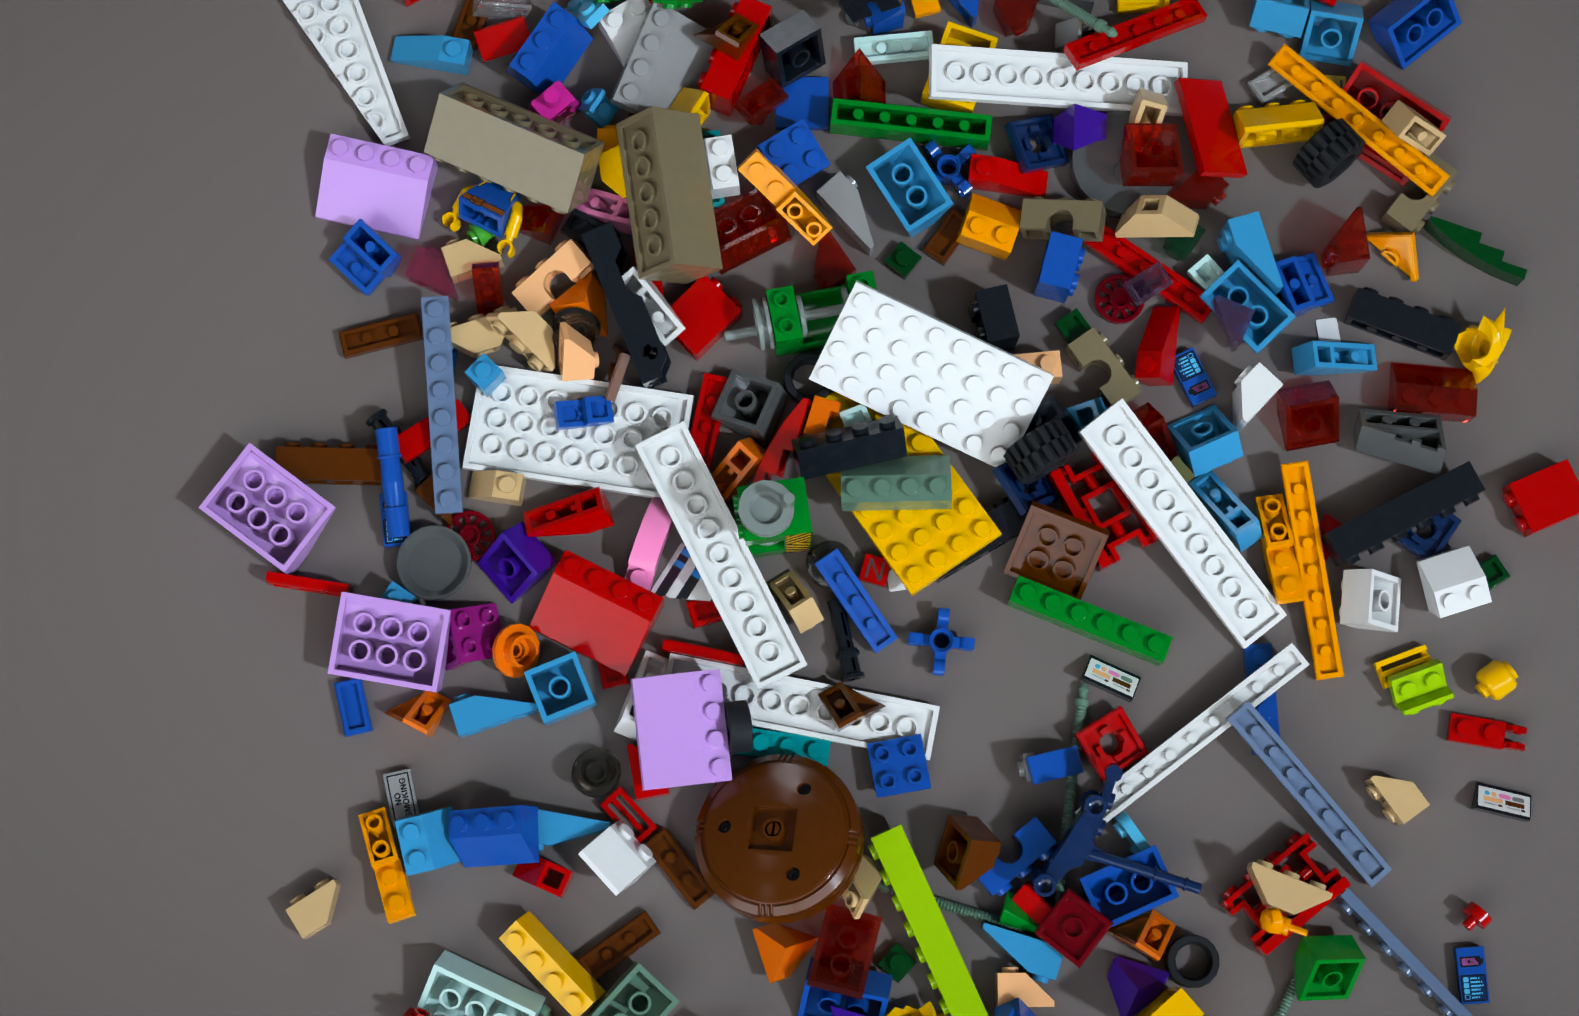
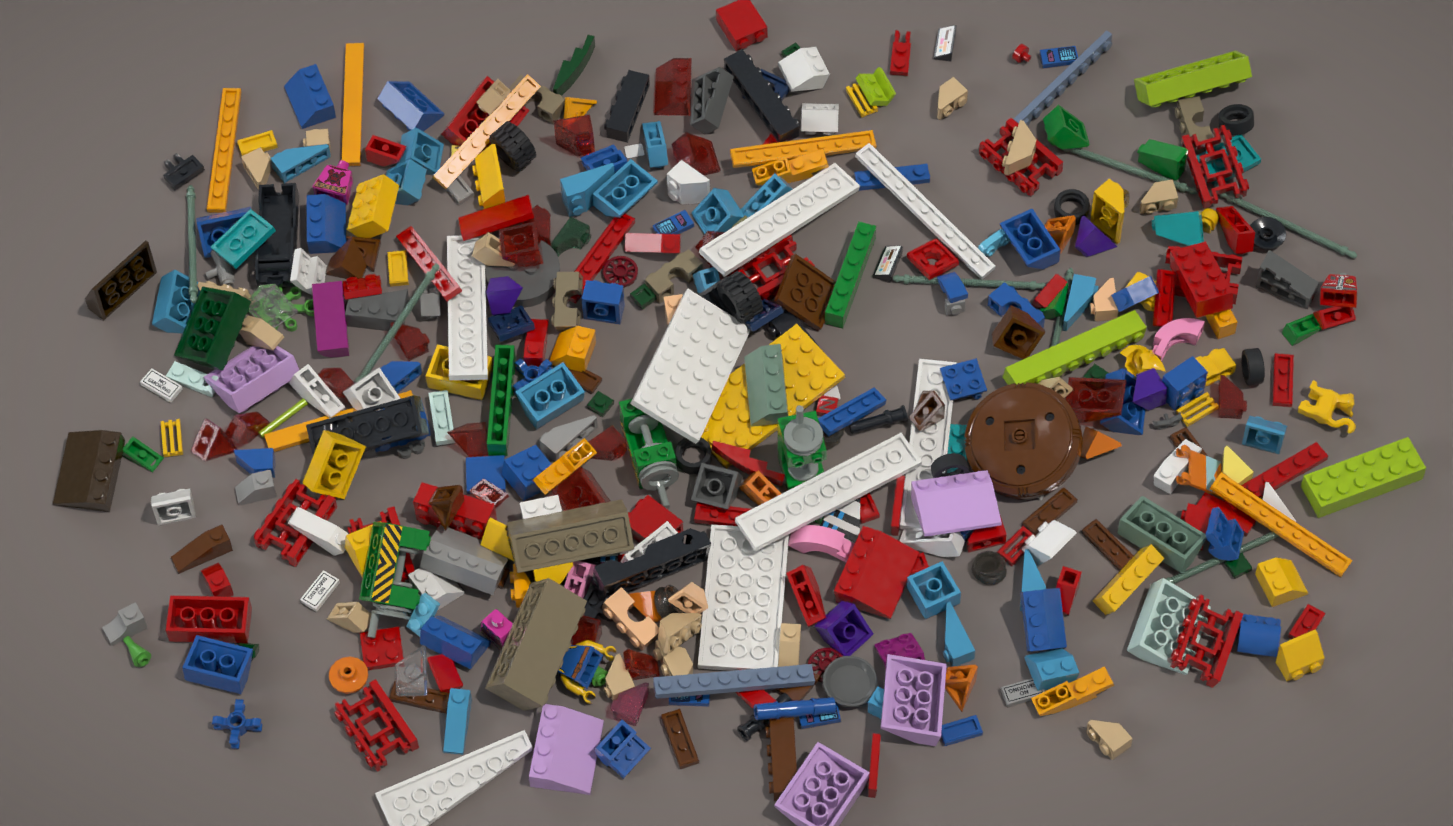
camera: 90 degrees left, 20 degrees down
(485, 375) = (709, 654): dark azure brick -> none
(516, 650) = (909, 620): orange piece -> none
(583, 413) = (731, 591): blue slope -> none
(596, 107) = (496, 601): dark azure bracket -> none
(617, 371) = (696, 570): reddish brown tile -> none
(792, 48) = (447, 471): black brick -> none
(796, 601) = (856, 443): tan slope -> none
(820, 415) = (734, 437): orange leg -> none
(849, 447) = (746, 413): black brick -> none
(855, 414) = (724, 416): light aqua plate -> none
(927, 640) = (874, 355): blue pin -> none
(994, 317) = (642, 337): black brick -> none
(1074, 927) = (1060, 266): dark red tile -> none
(1079, 845) = (1002, 263): dark blue piece -> none
(1147, 284) = (613, 249): clear purple slope -> none
(1157, 218) = (566, 243): tan slope -> none
(1205, 272) = (599, 220): light aqua plate -> none
(1233, 320) = (639, 191): clear purple slope -> none
(1274, 923) = (1041, 154): light orange piece -> none
(1308, 793) = (953, 143): sand blue plate -> none
(1482, 345) = (641, 57): yellow hair -> none
(1496, 680) = (866, 46): yellow head -> none

